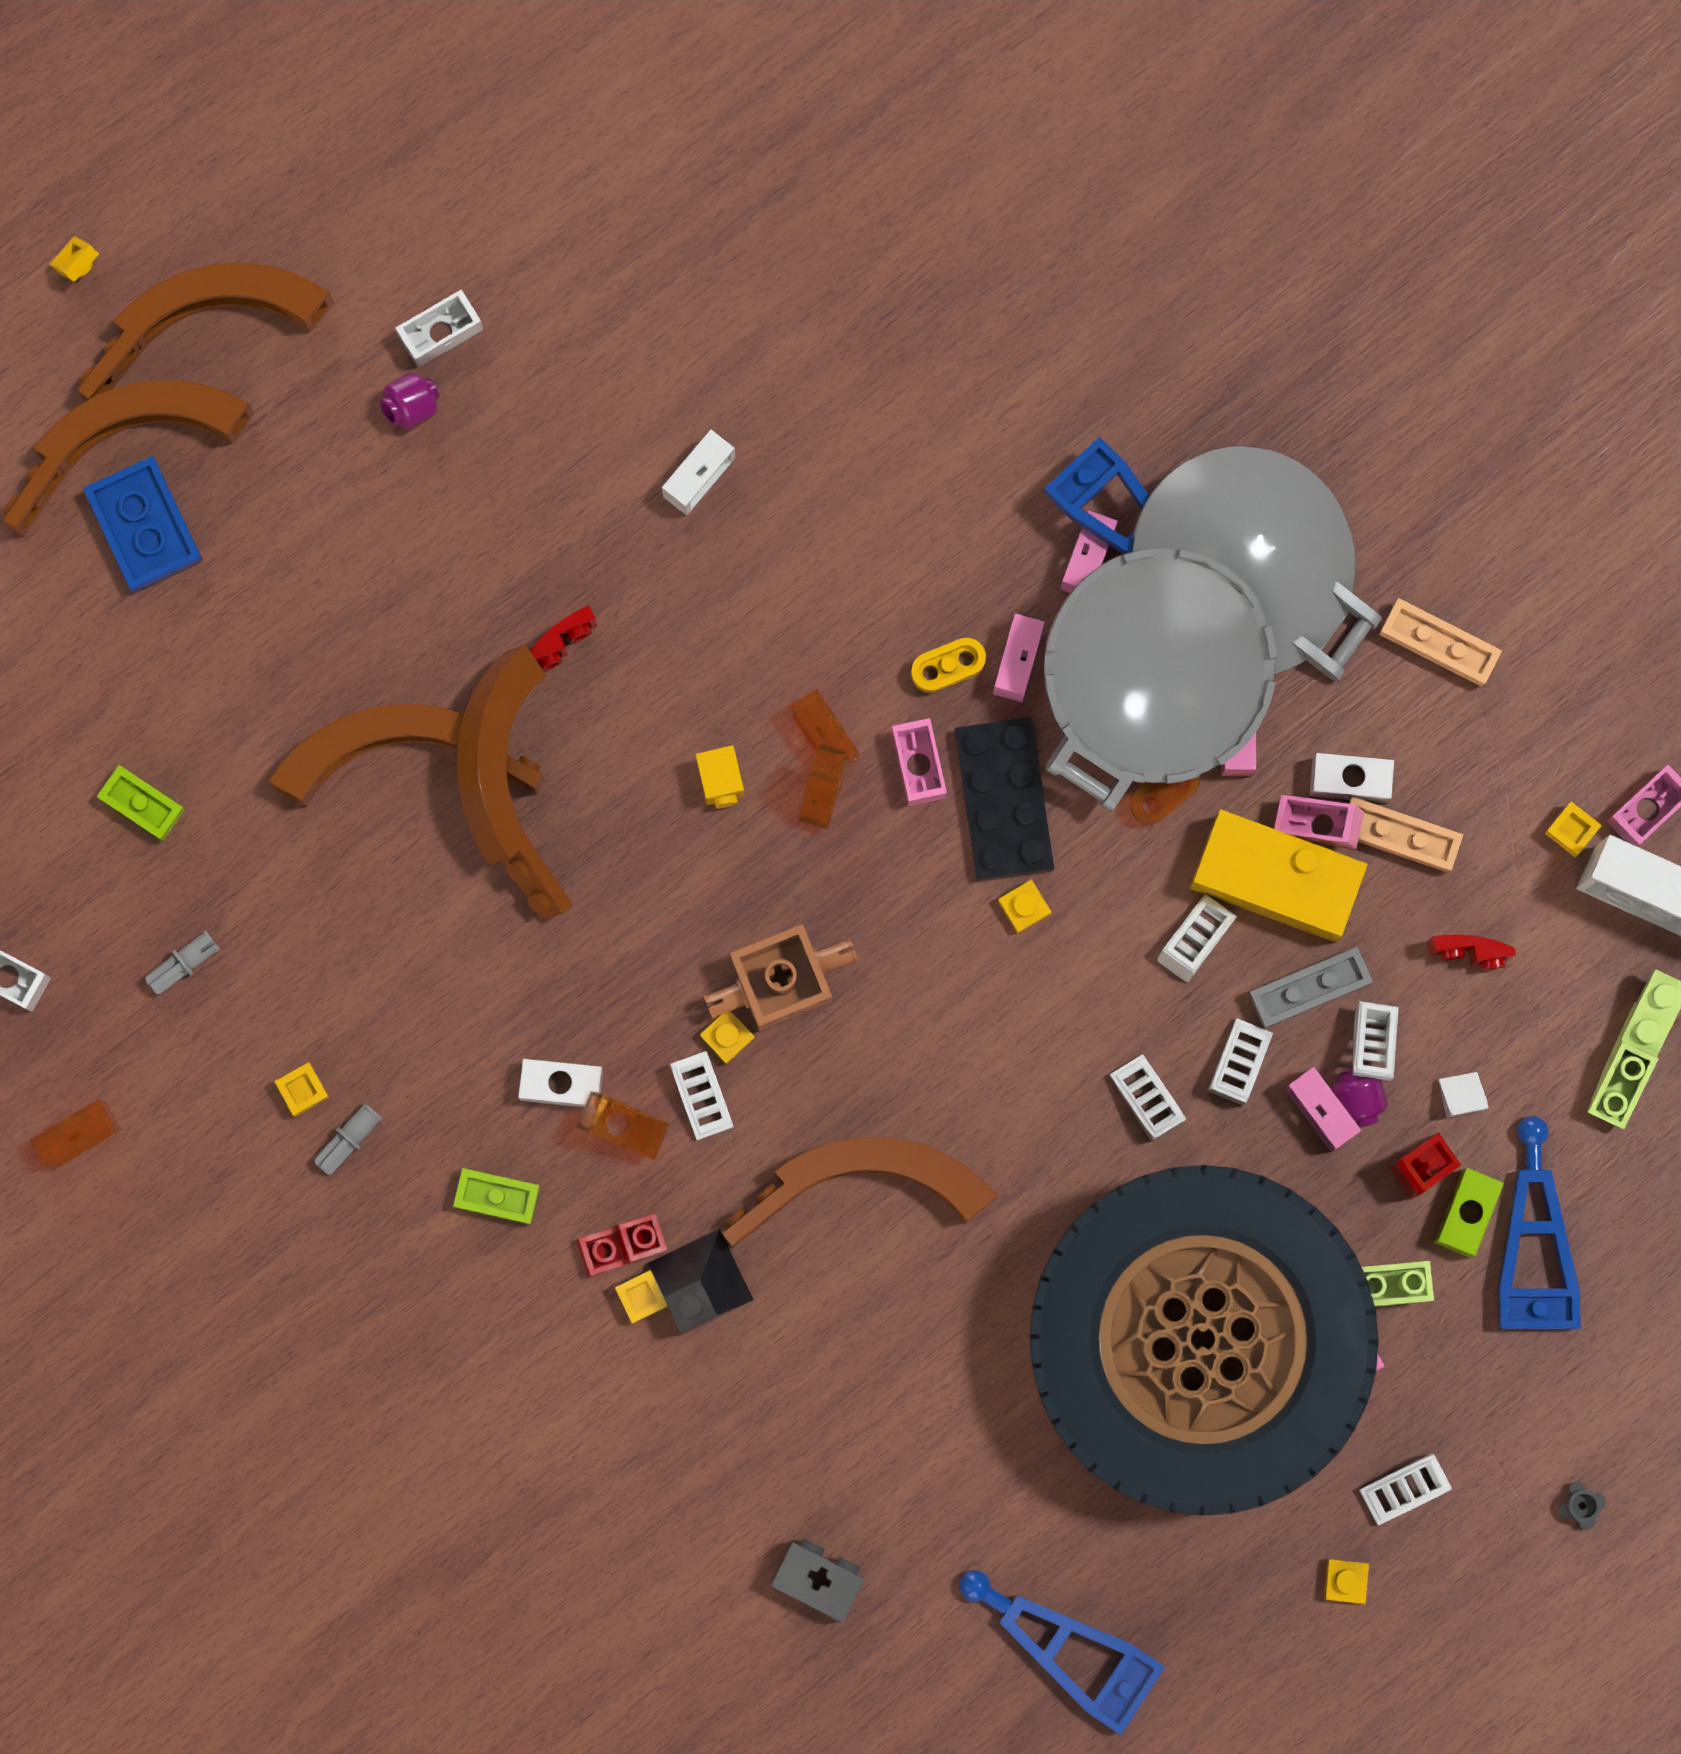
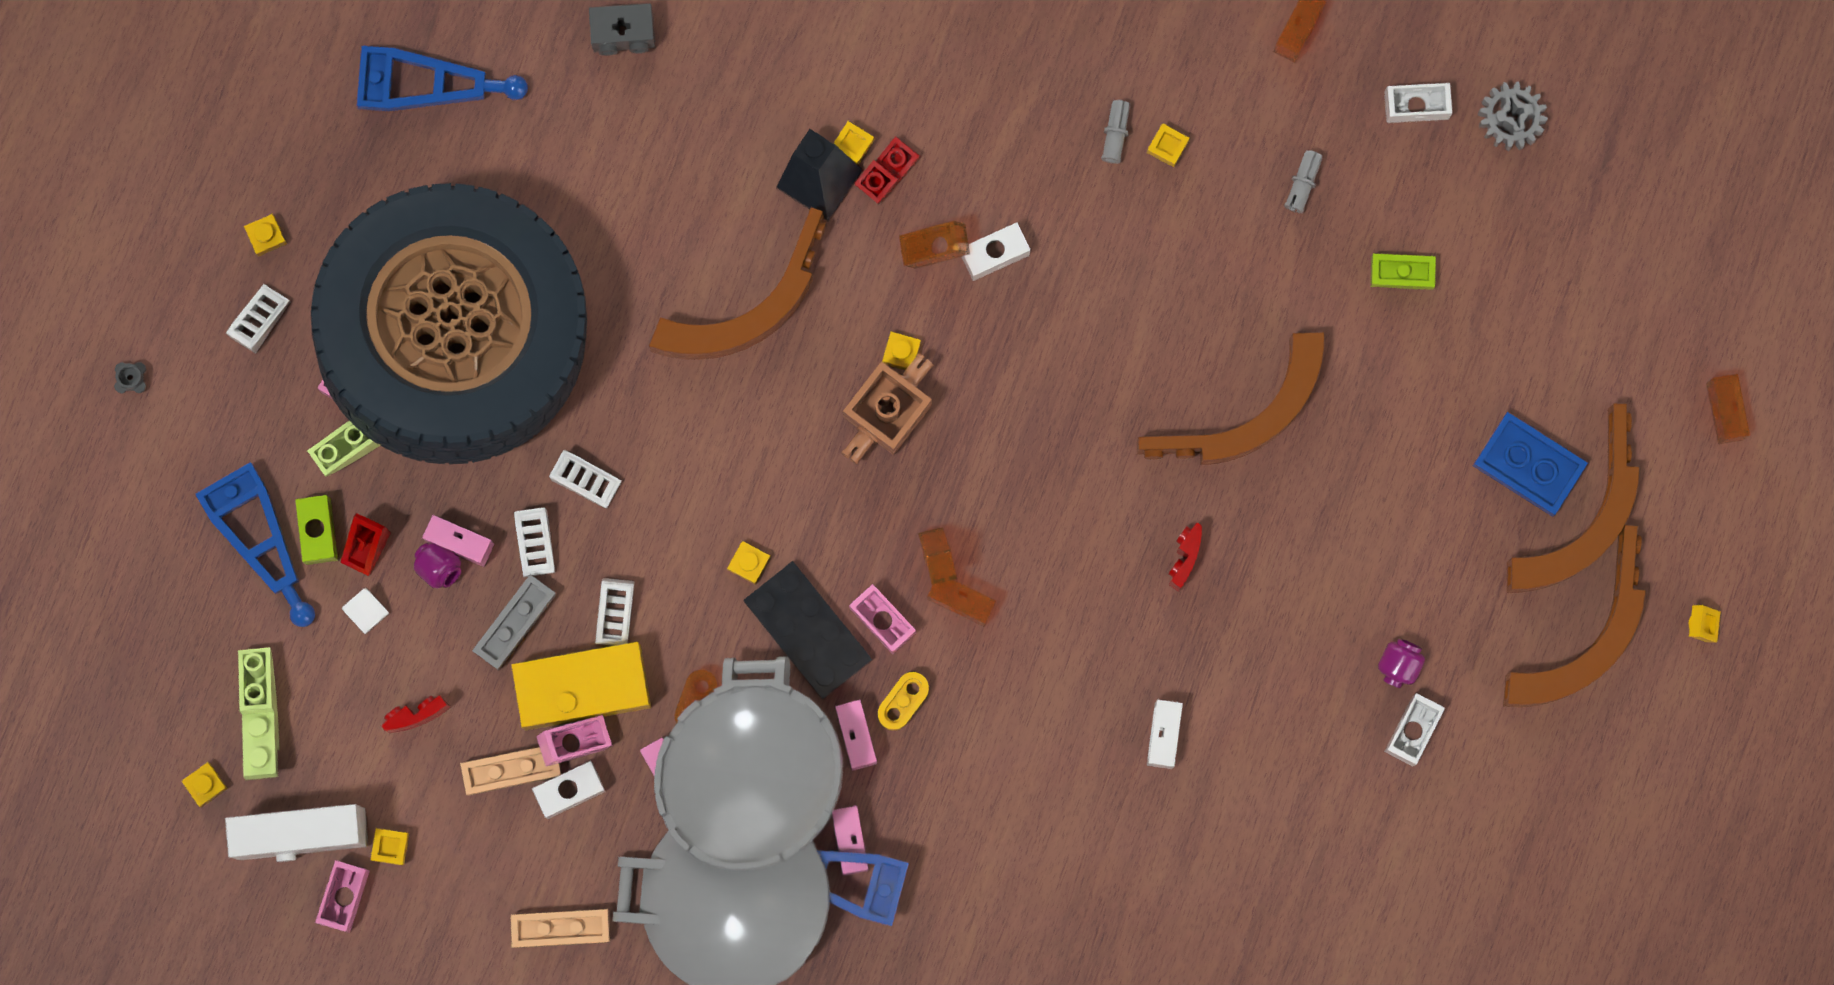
camera: 150 degrees right, 0 degrees up
(485, 783) = (1181, 423): dark orange arch -> none
(496, 1196) = (991, 152): lime plate -> none
(692, 1063) = (915, 315): white slope -> none
(720, 777) = (1014, 525): yellow brick -> none
(1375, 1015) = (455, 630): white slope -> none

